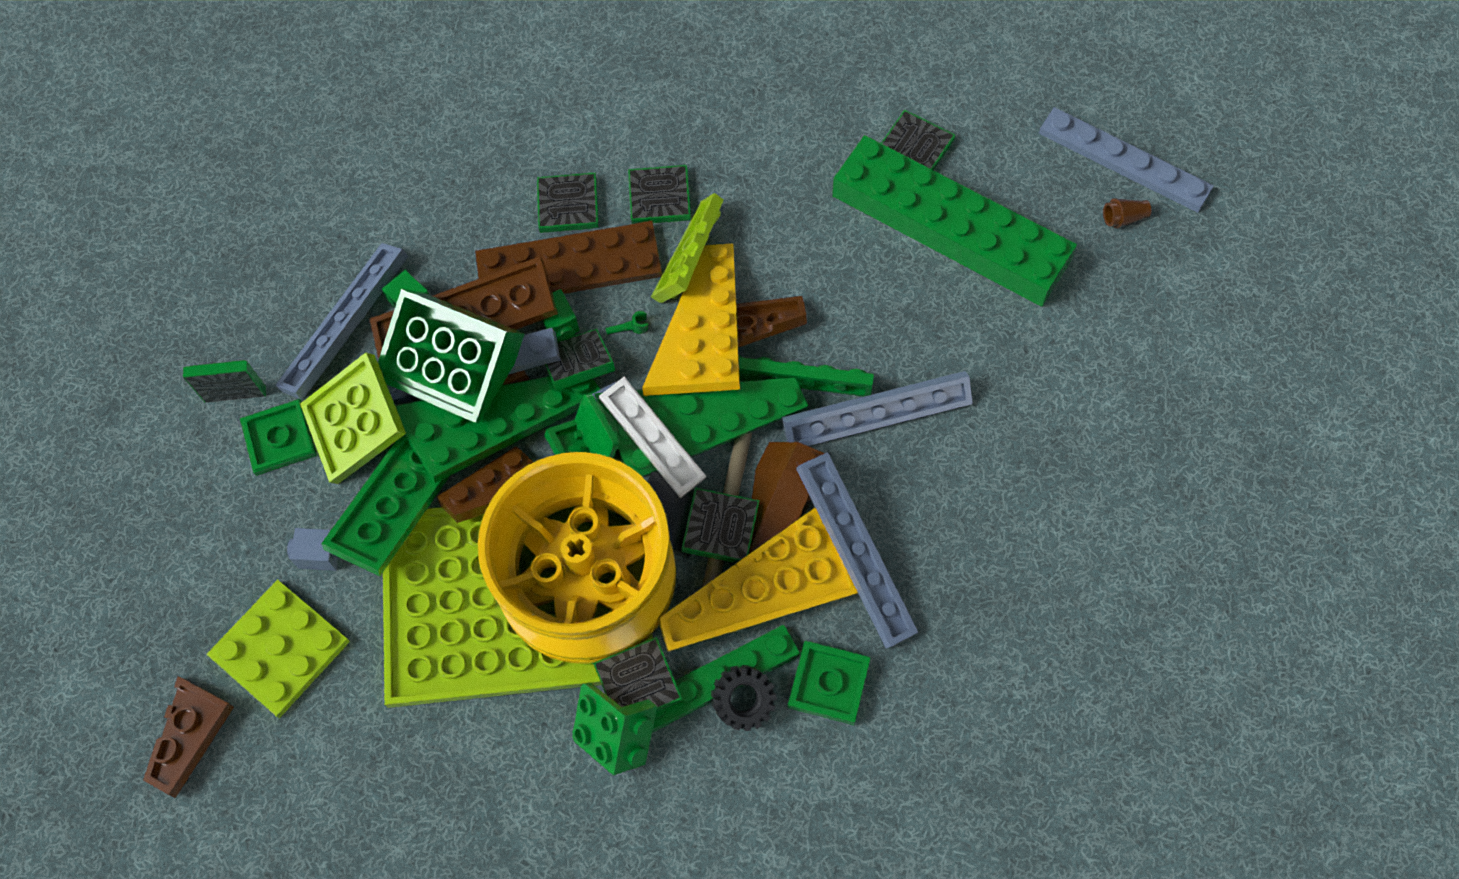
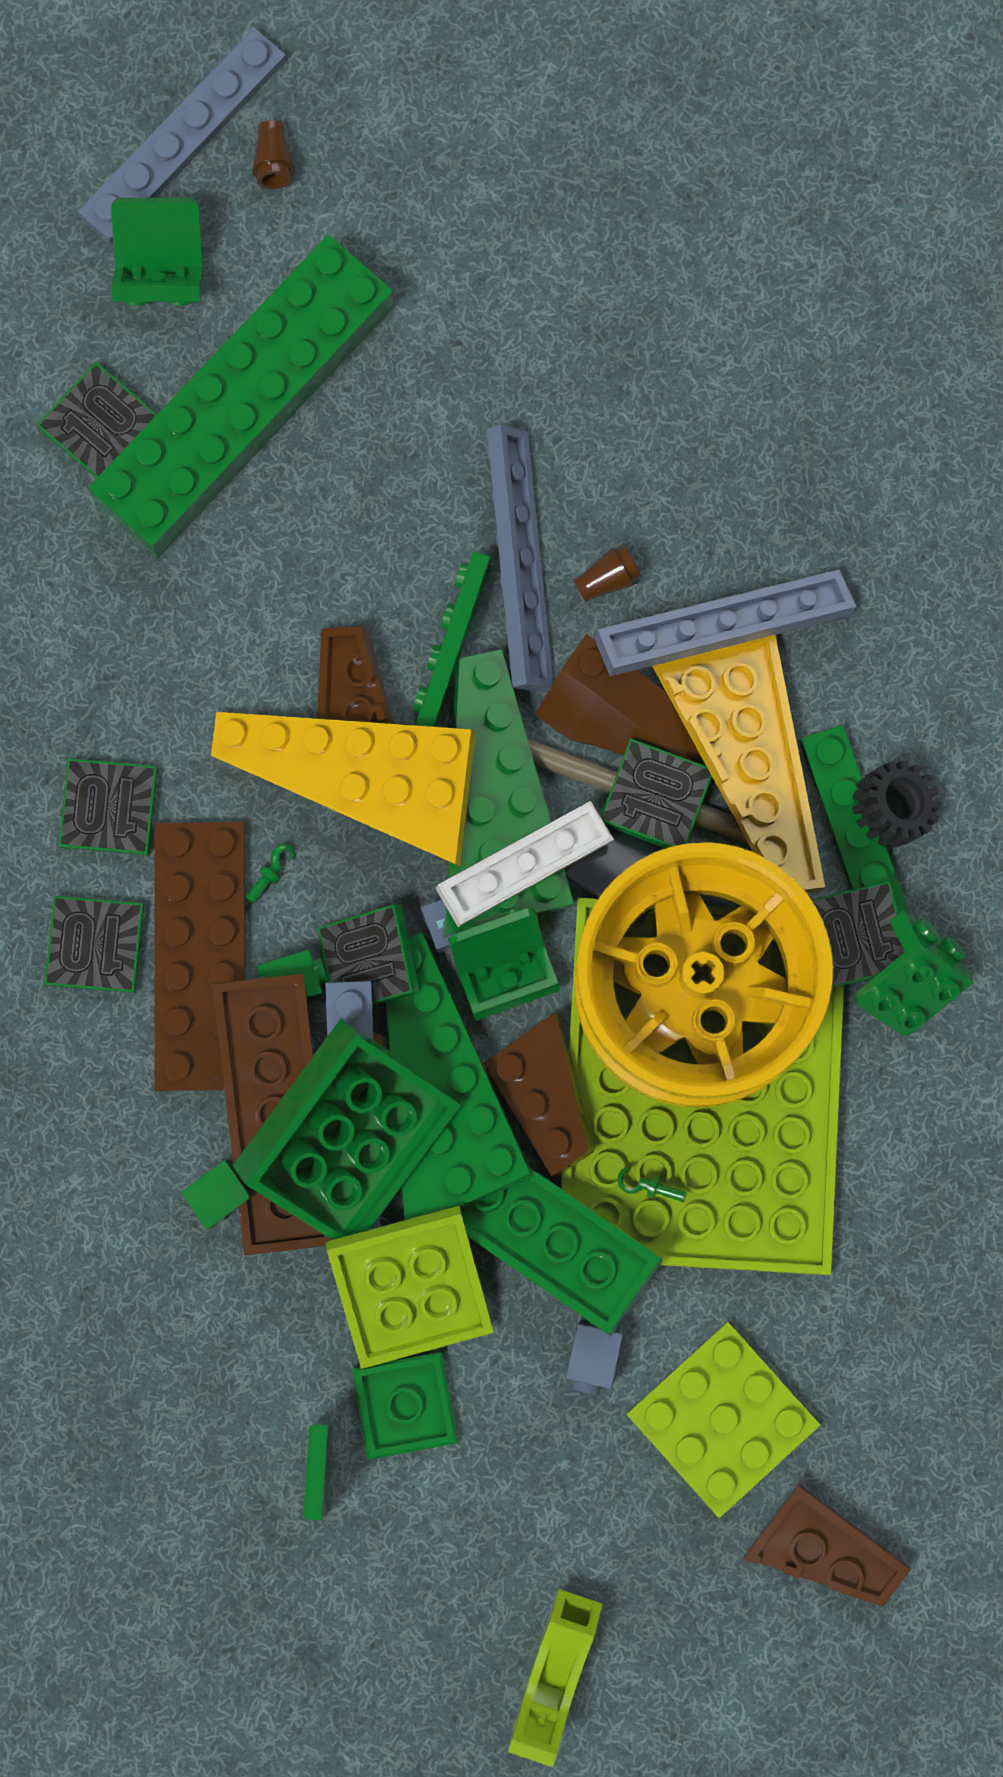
camera: 85 degrees left, 15 degrees up
(83, 557) = (554, 1677): none -> lime arch
(341, 321) = (236, 1296): sand blue plate -> none
(436, 566) = (652, 1186): none -> green hand
(629, 294) = (269, 874): none -> green hand
(631, 325) = (319, 882): green hand -> none
(686, 256) = (235, 781): lime wing -> none
(829, 682) = (888, 694): green plate -> none
(881, 473) = (608, 574): none -> reddish brown cone
(1038, 153) = (157, 251): none -> green bracket

